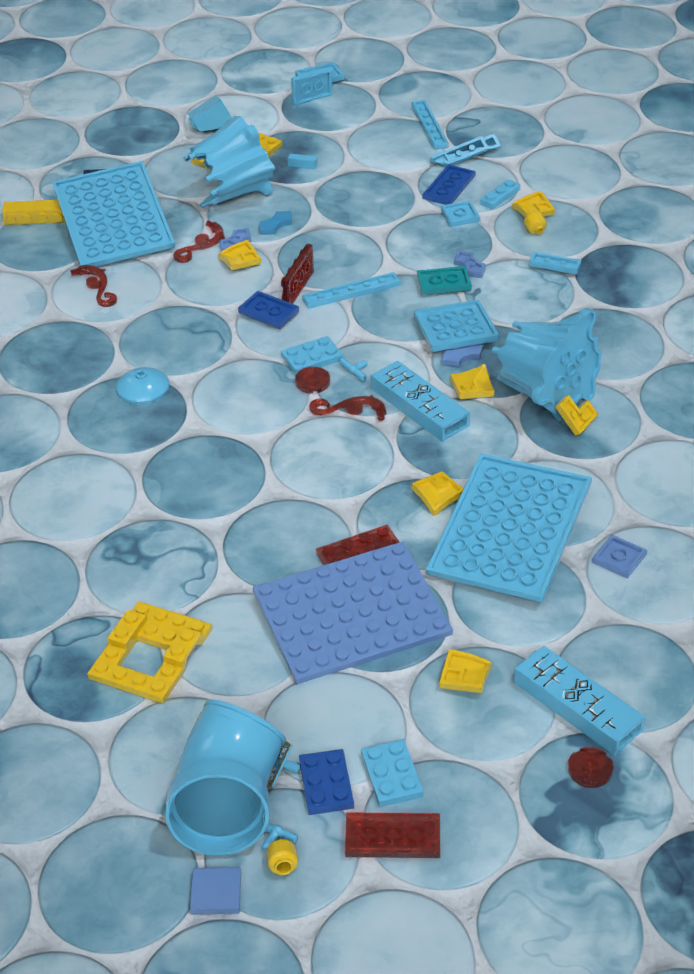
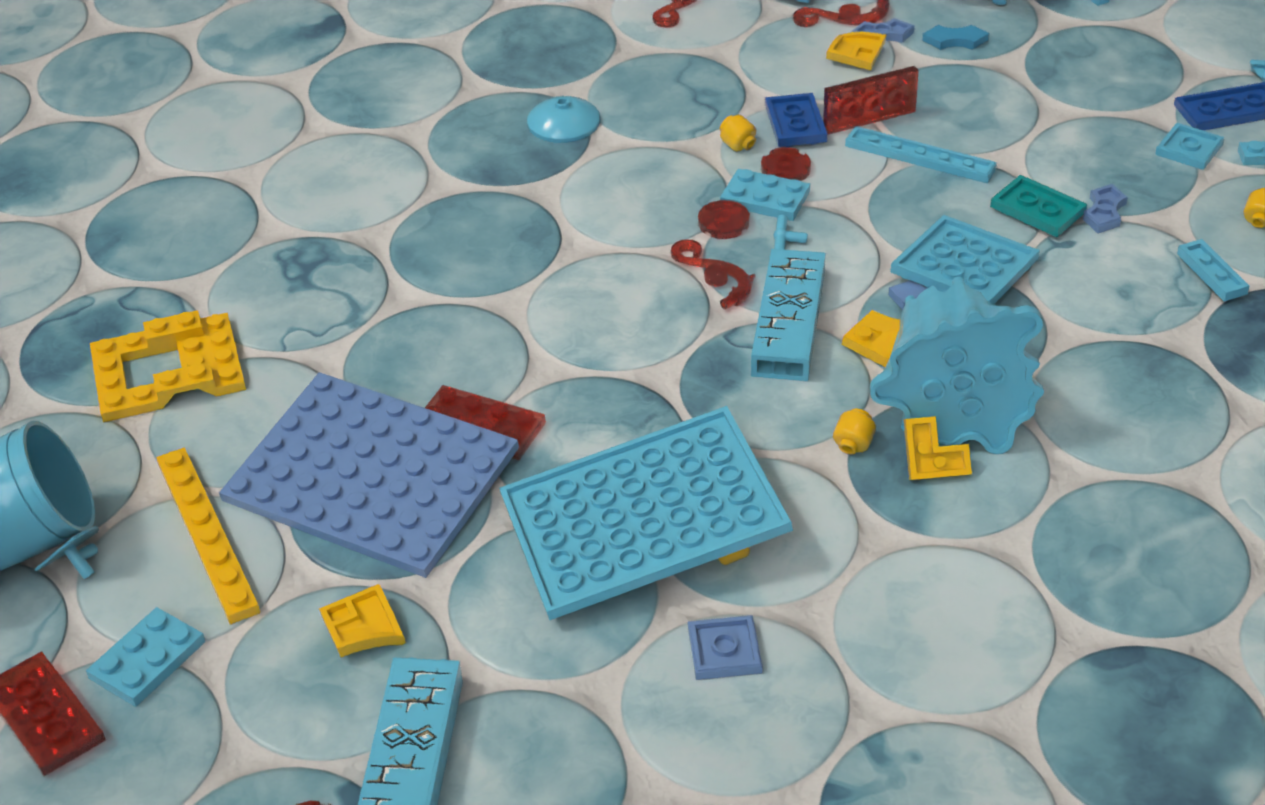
camera: 50 degrees right, 0 degrees up
(253, 333) = (738, 133): none -> yellow head
(297, 334) = (786, 163): none -> clear red tile
(320, 701) = (208, 536): none -> yellow plate
(326, 782) = (86, 610): blue plate -> none
(437, 491) = (644, 415): yellow plate -> none
(530, 430) = (854, 431): none -> yellow head

